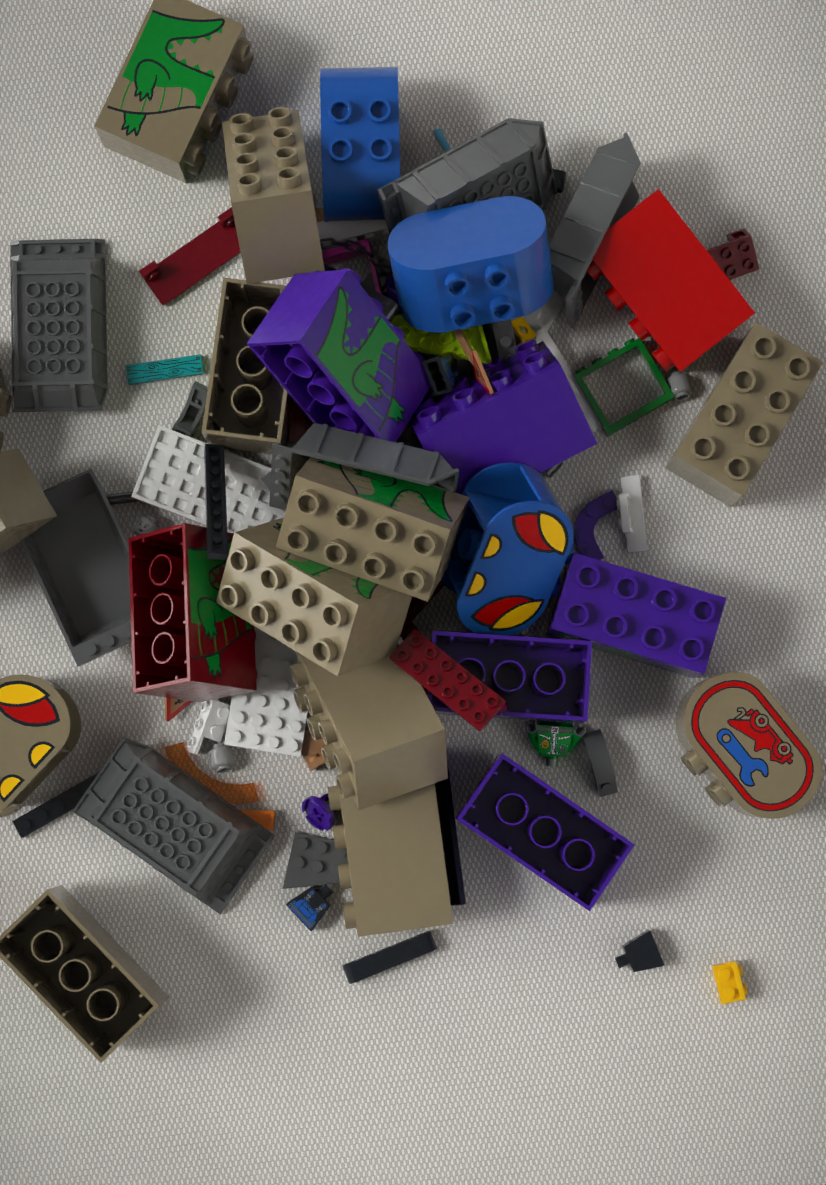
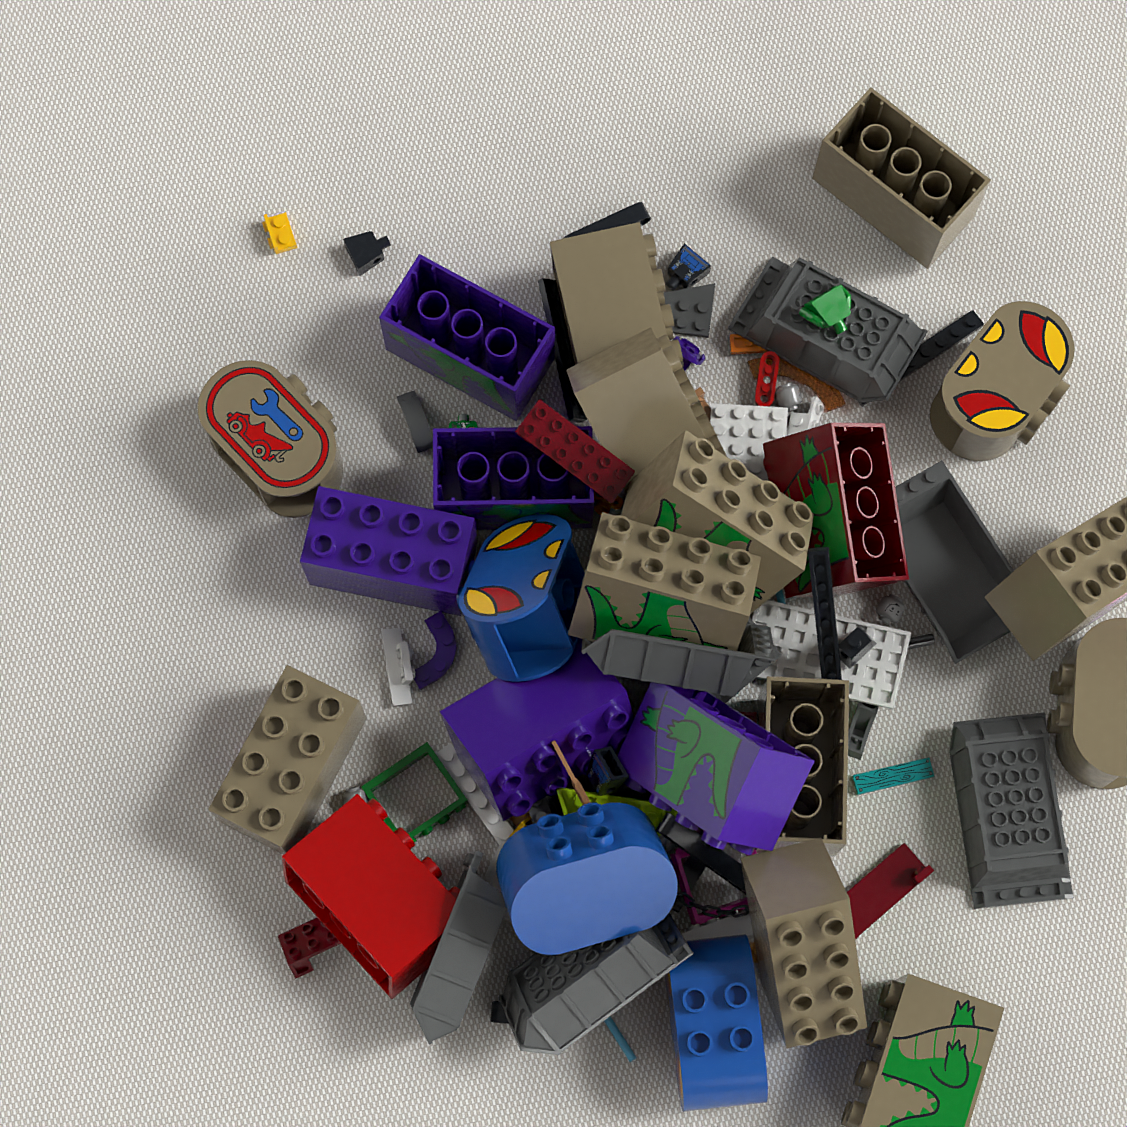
camera: 175 degrees right, 10 degrees down
(172, 831) = (827, 308): none -> torso
(186, 486) = (855, 647): none -> black torso
(245, 768) = (770, 372): none -> red plate

